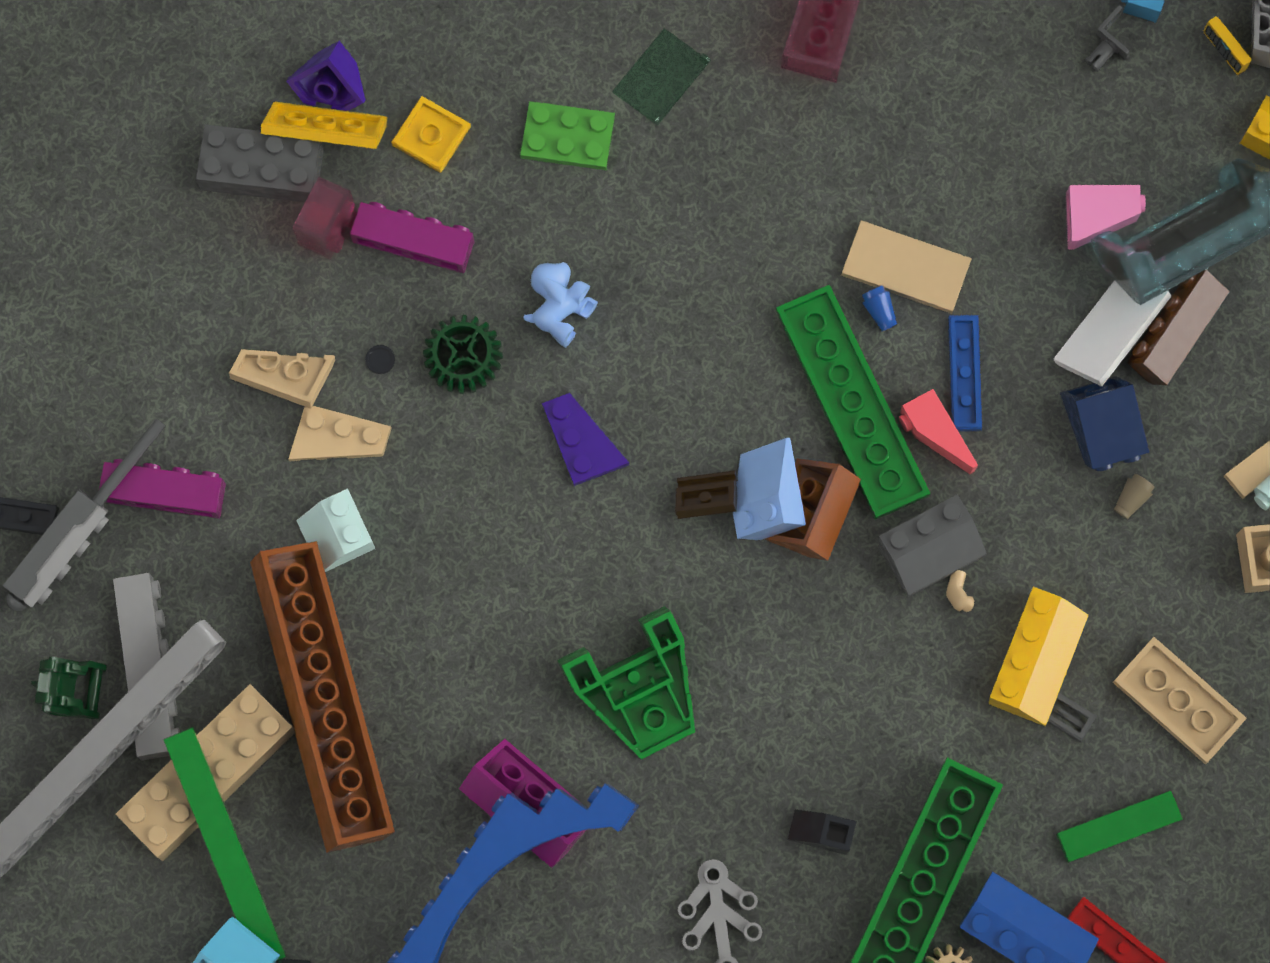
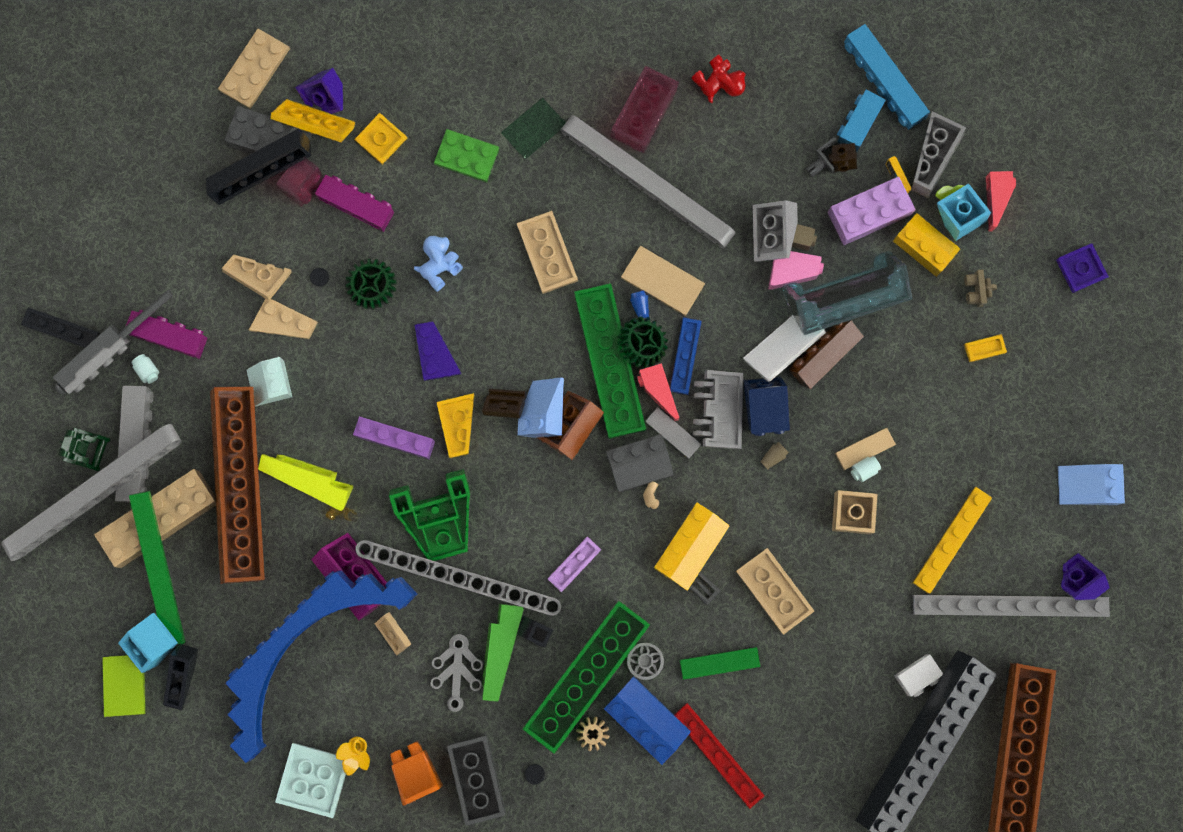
camera: 10 degrees right, 5 degrees up
(140, 548) = (145, 369): none -> light aqua brick
(215, 65) = (254, 68): none -> tan plate
(258, 208) = (258, 166): none -> black brick
(427, 667) = (307, 478): none -> neon yellow wedge
(483, 706) = (333, 512): none -> clear yellow arm
(547, 579) = (394, 438): none -> medium lavender brick
(608, 878) = (392, 633): none -> tan plate
(638, 540) = (456, 423): none -> yellow wing
(706, 766) = (450, 571): none -> light grey beam
(722, 256) = (547, 252): none -> tan plate
(777, 870) = (499, 650): none -> bright green wedge
(853, 122) = (650, 182): none -> light grey beam
(863, 719) = (574, 564): none -> lavender tile
(887, 365) = (629, 337): none -> dark green gear
(972, 491) = (673, 433): none -> light grey tile
(1005, 845) = (645, 661): none -> light grey wheel
(1041, 437) = (724, 408): none -> light grey hinge
(1059, 158) = (774, 230): none -> light grey slope
(1102, 162) = (804, 238): none -> dark tan brick
(1140, 32) = (844, 157): none -> dark brown brick
(1198, 104) = (871, 210): none -> lavender brick

